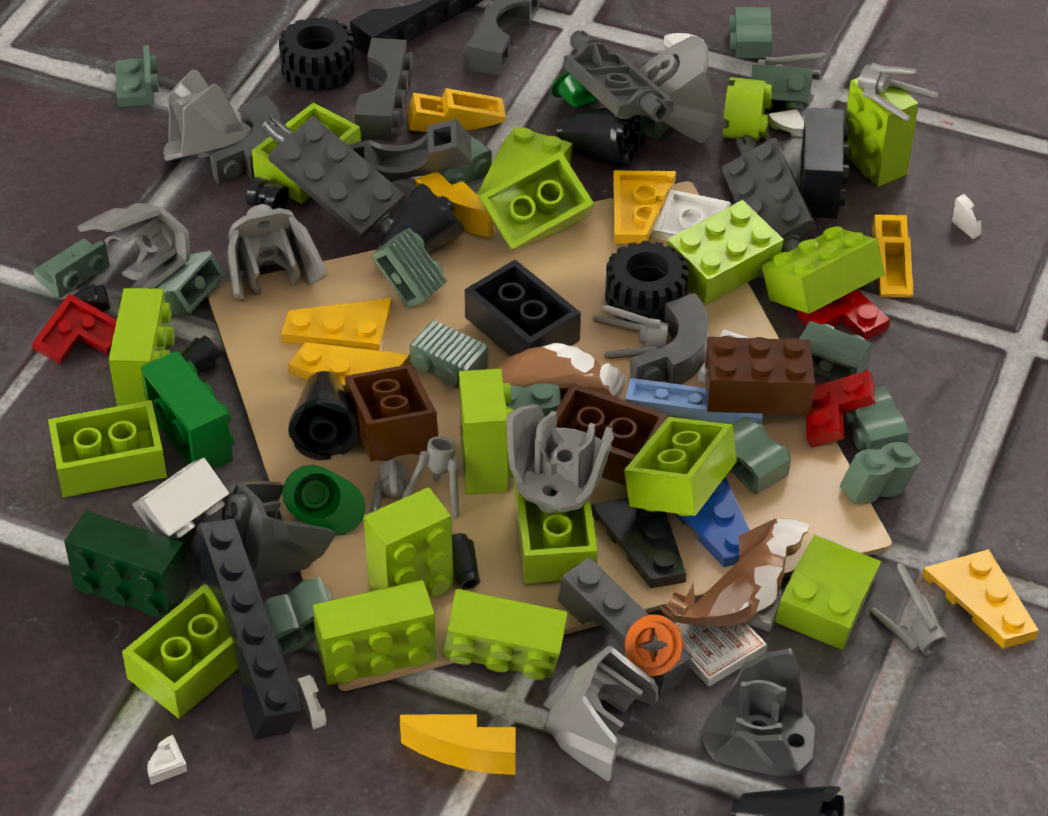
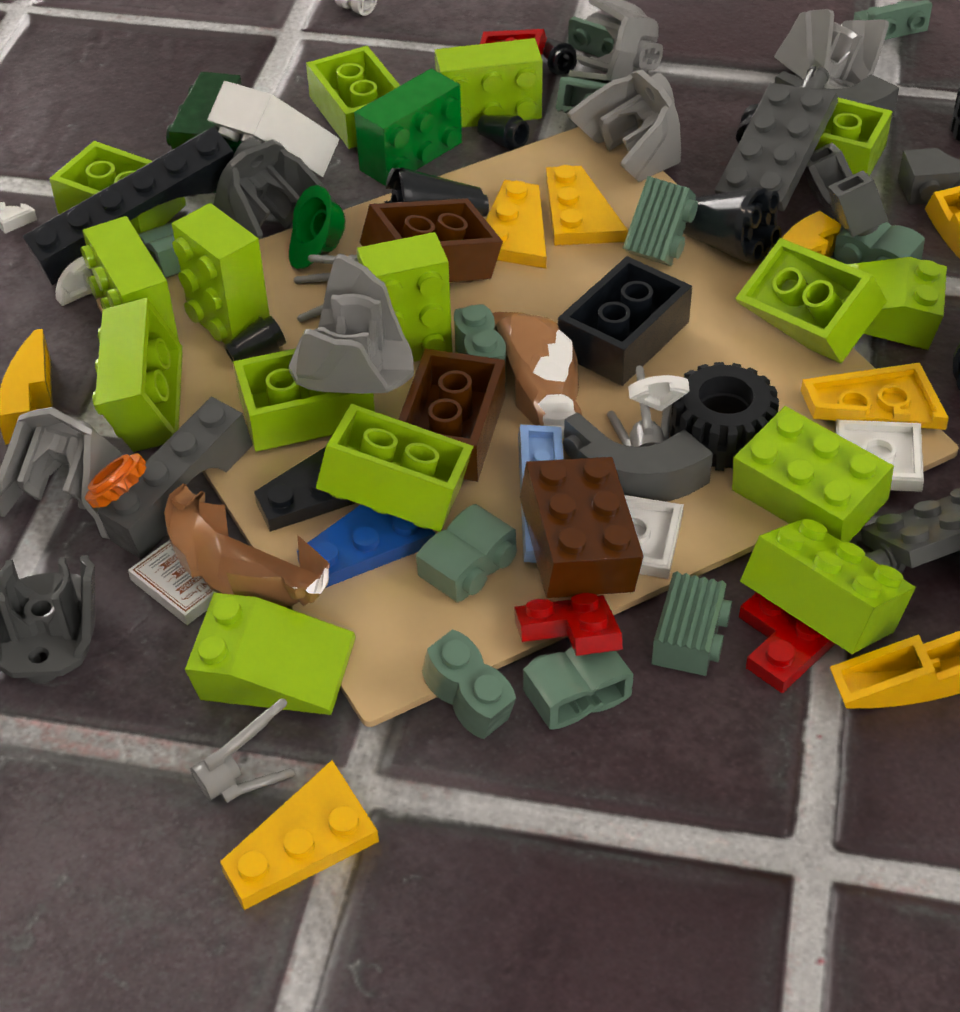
camera: 80 degrees right, 0 degrees up
(447, 352) = (550, 281): sand green brick -> none
(638, 302) = (659, 391): none -> white tile

